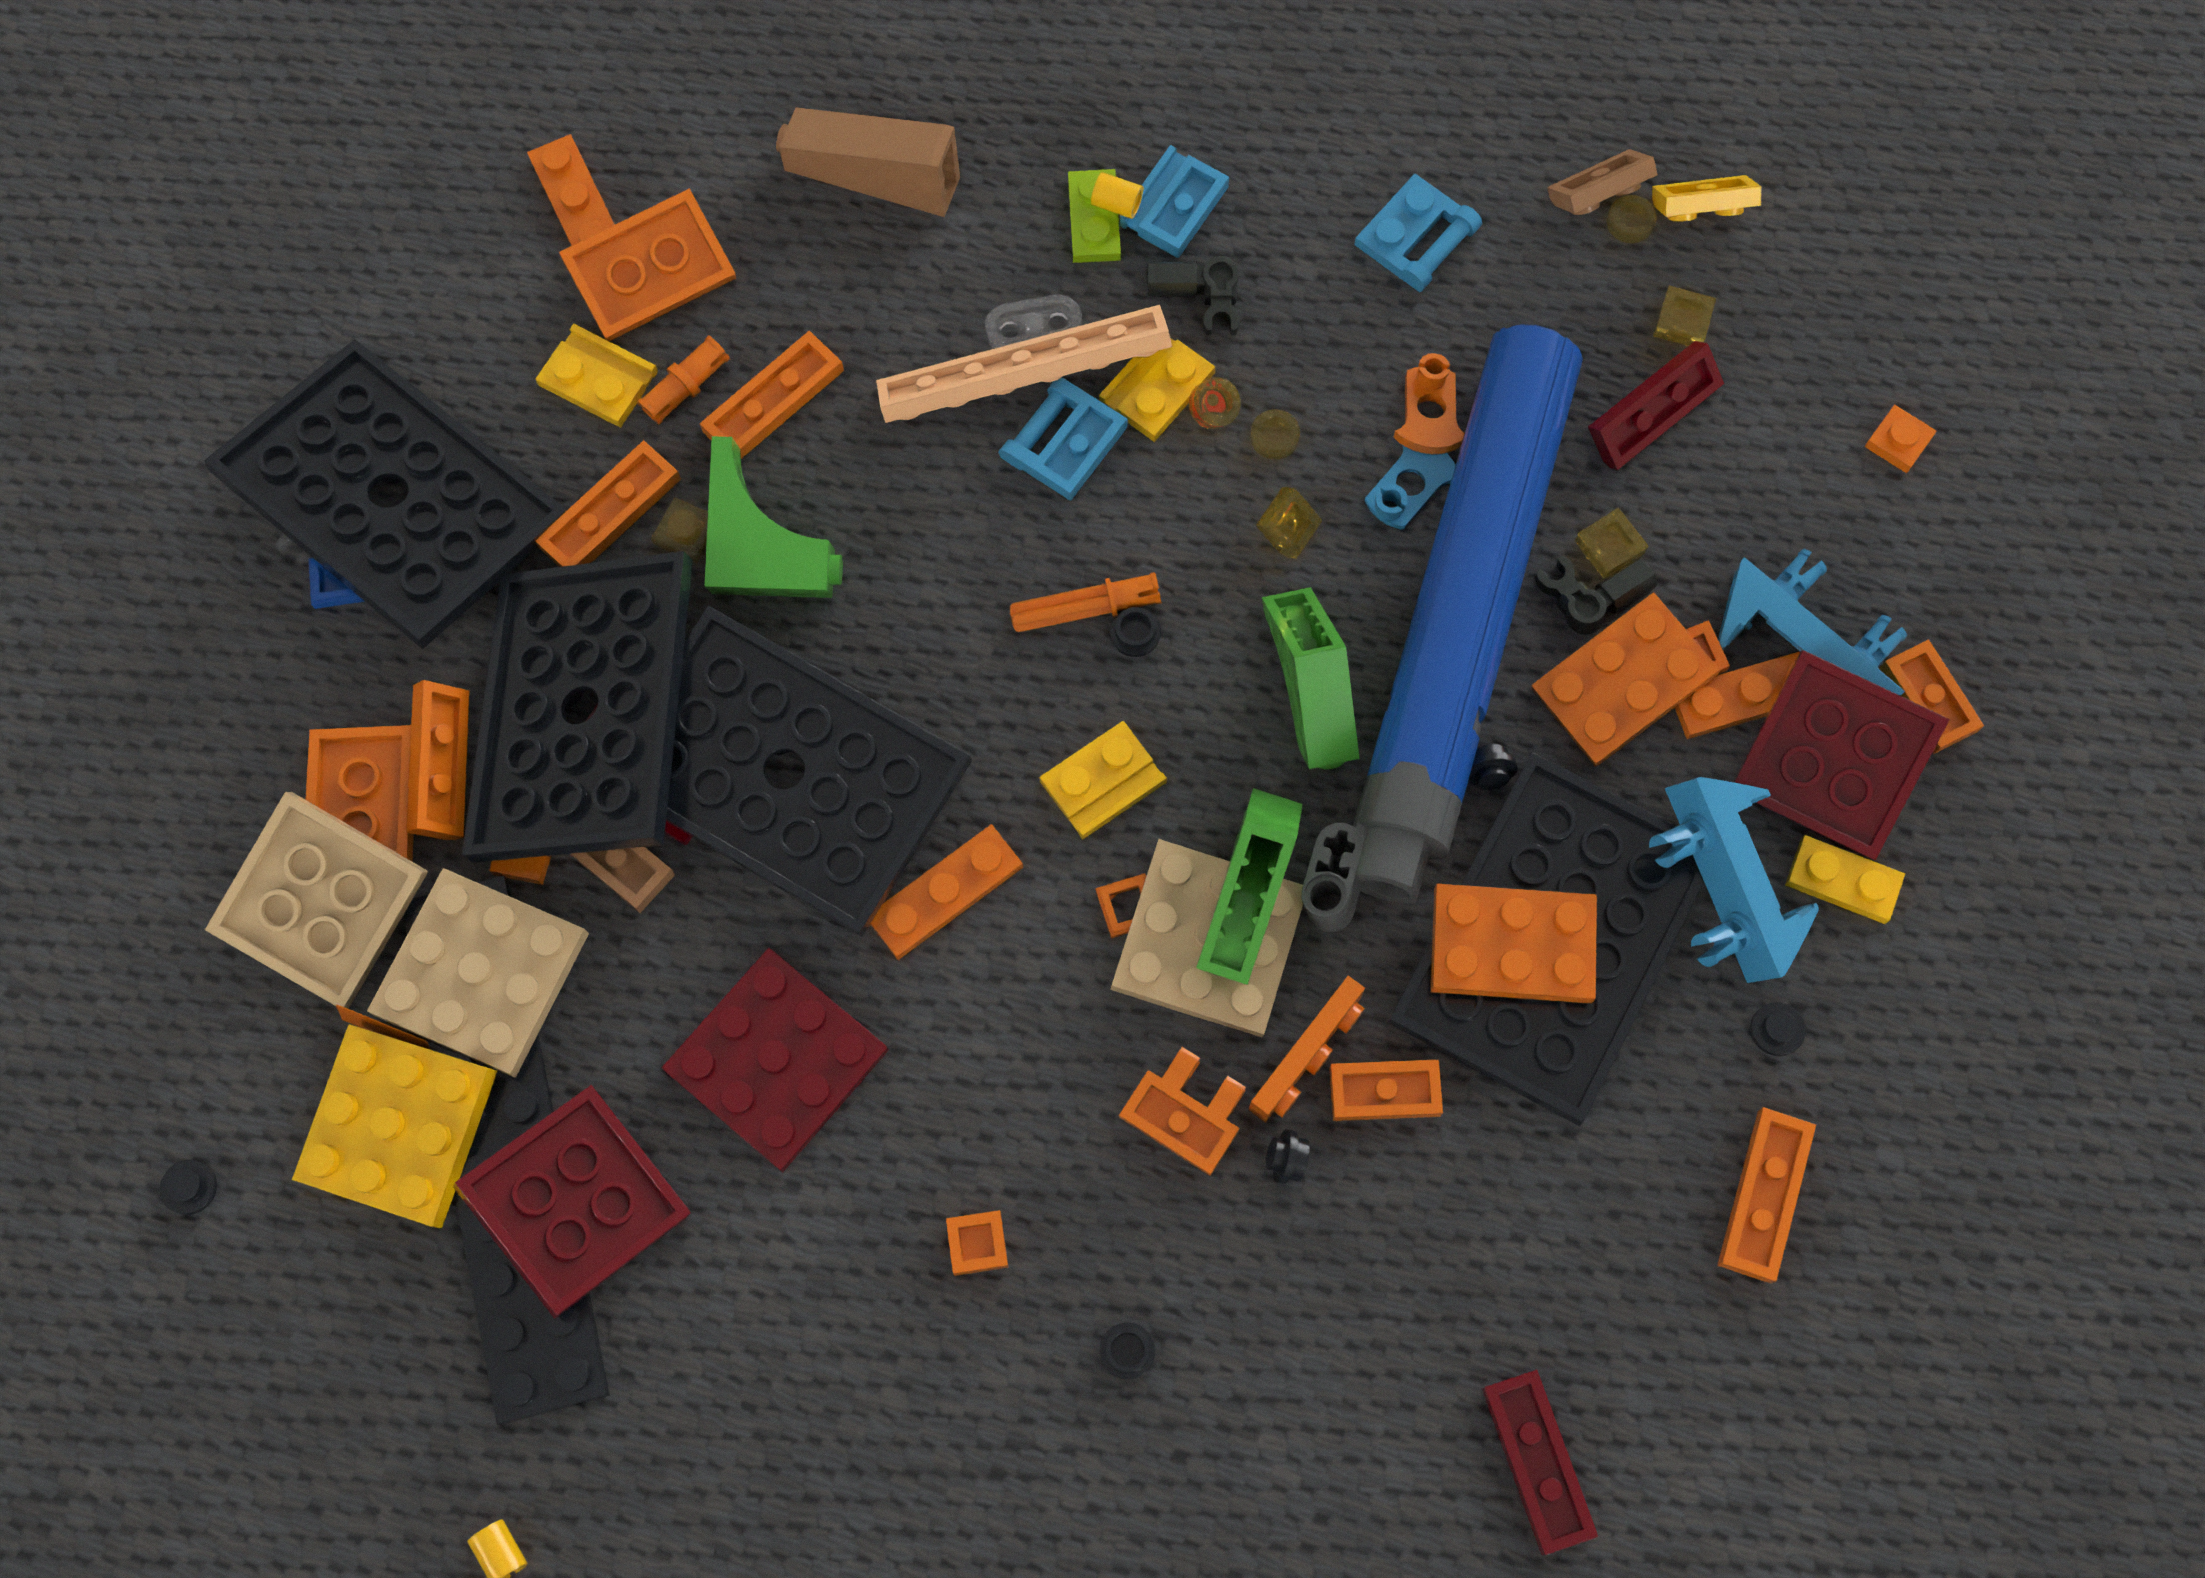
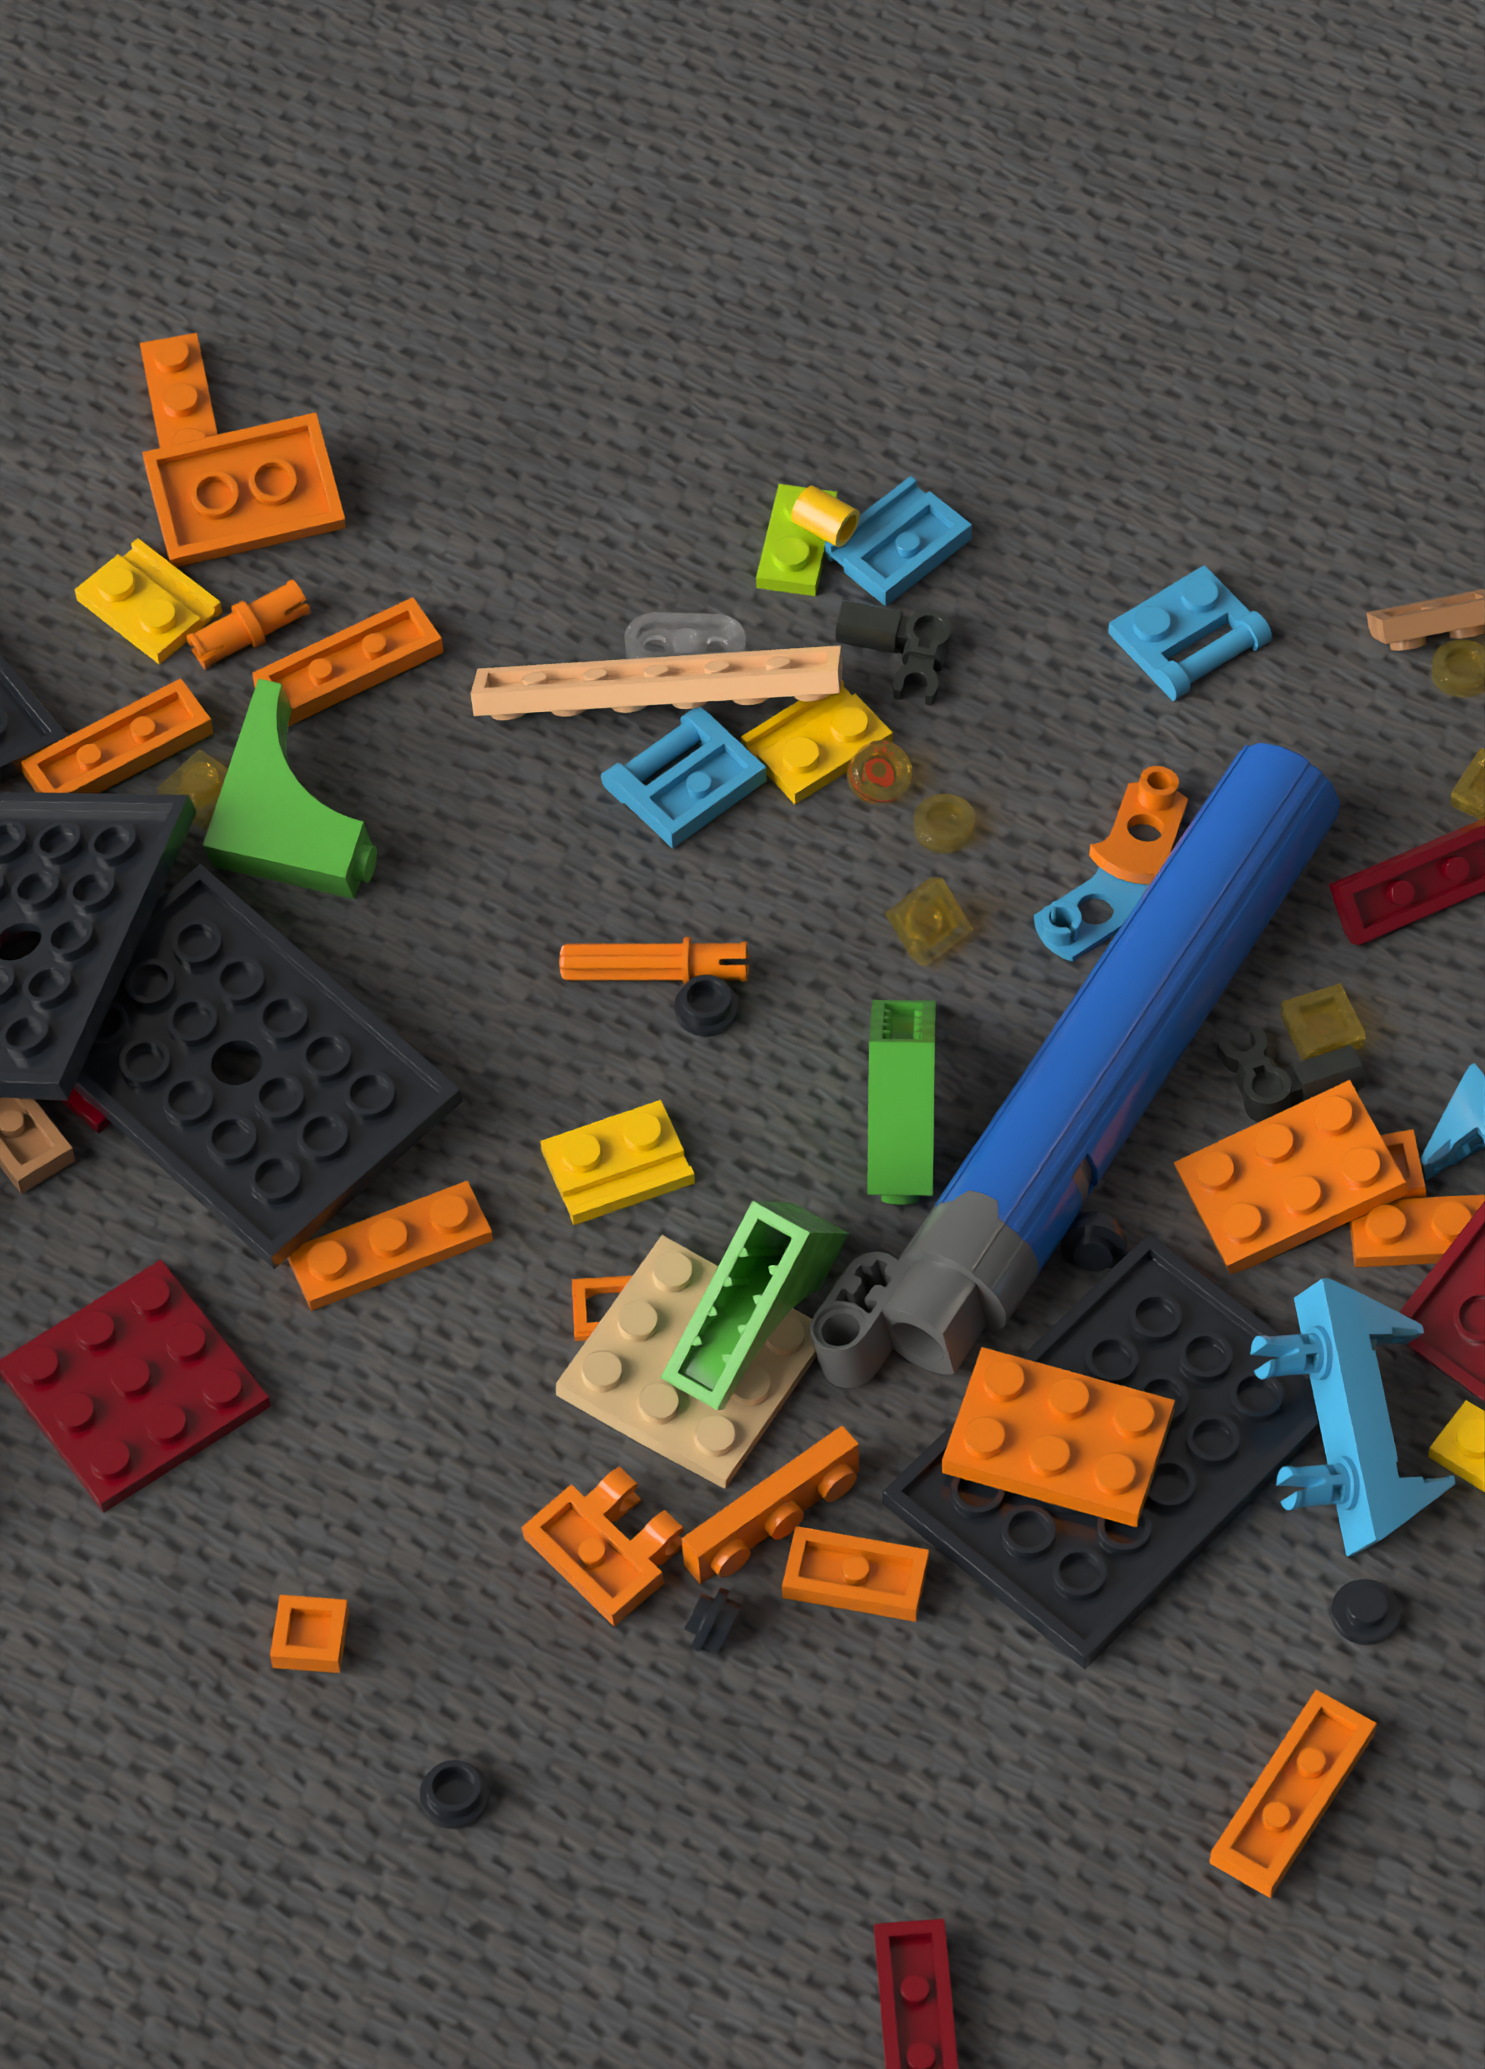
camera: 15 degrees right, 15 degrees down
(874, 156) = (549, 420): medium nougat slope -> none

